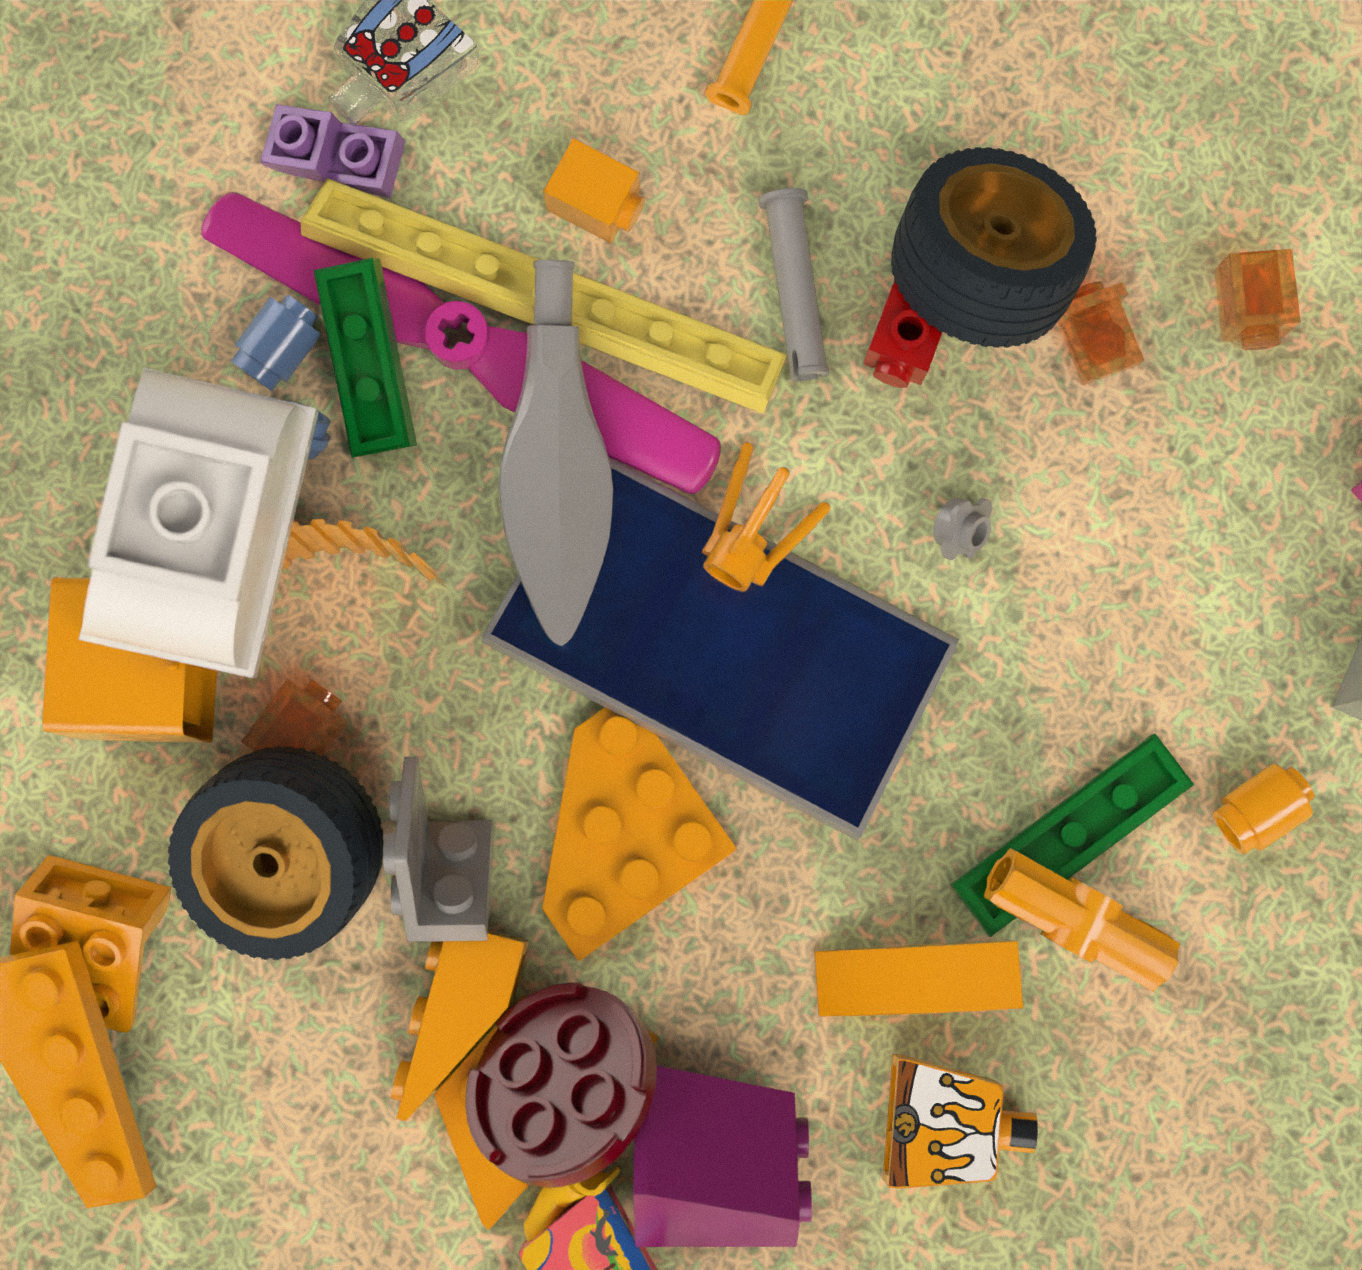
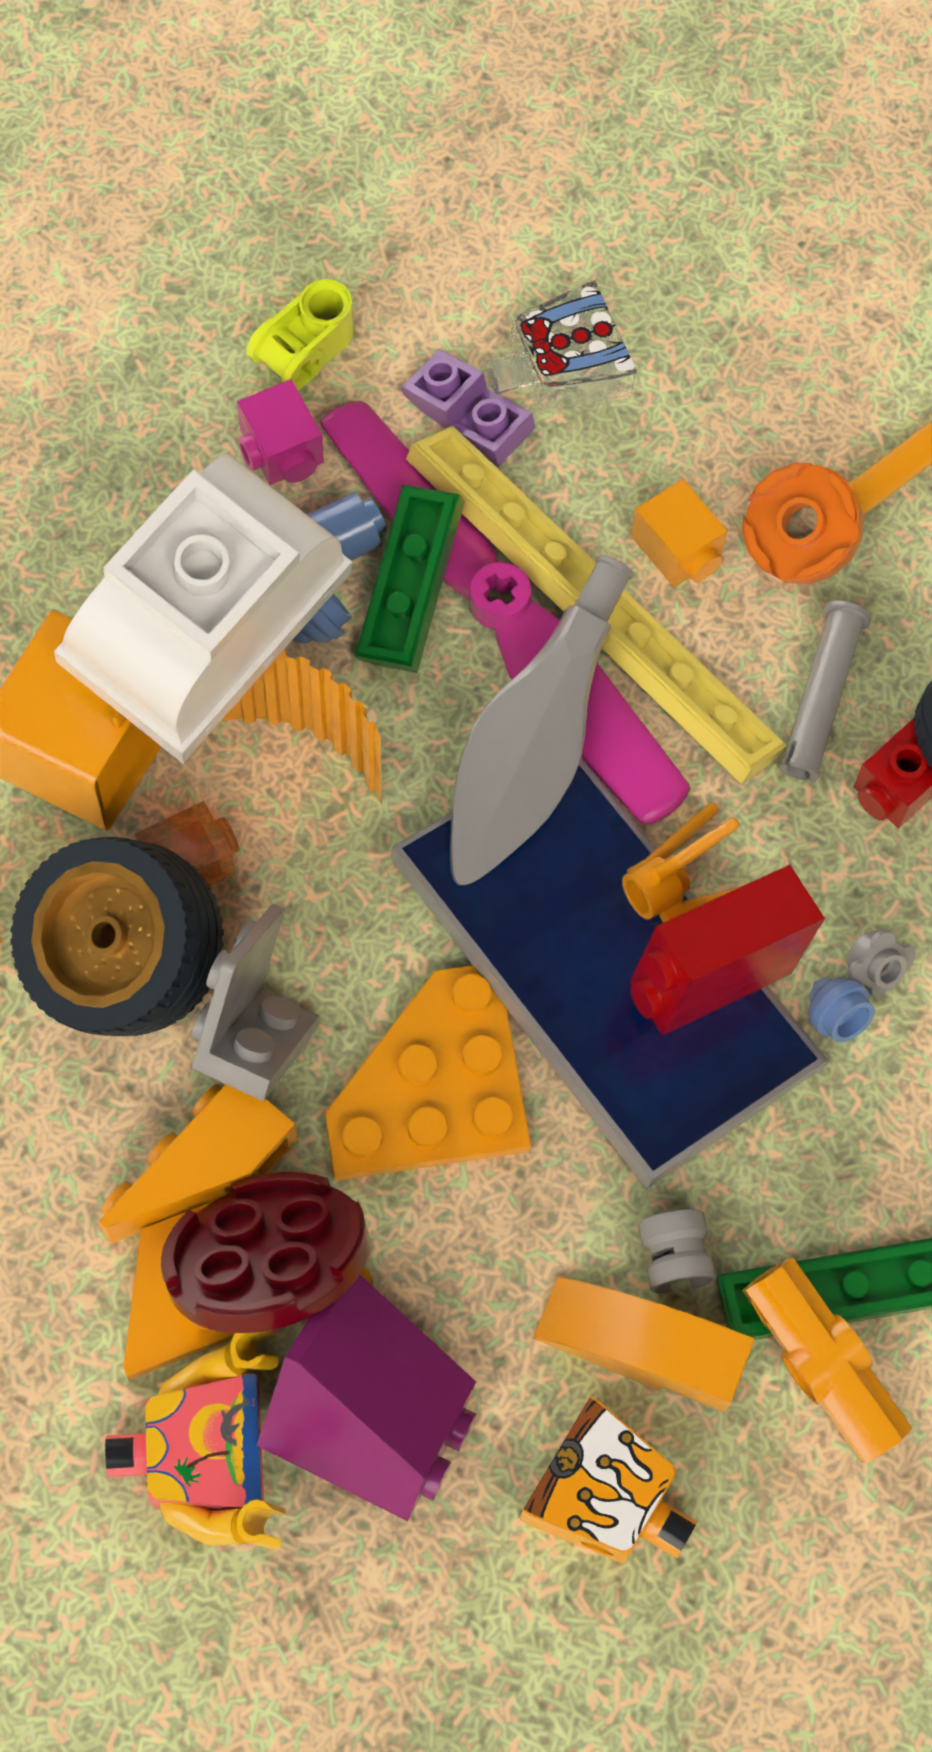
camera: 25 degrees right, 15 degrees down
(140, 164) = (298, 342): none -> neon yellow piece
(169, 269) = (279, 434): none -> dark pink brick
(738, 119) = (827, 547): none -> orange tile
(831, 598) = (725, 950): none -> red brick
(909, 883) = (677, 1249): none -> light grey wheel
(946, 586) = (840, 1008): none -> medium blue plate

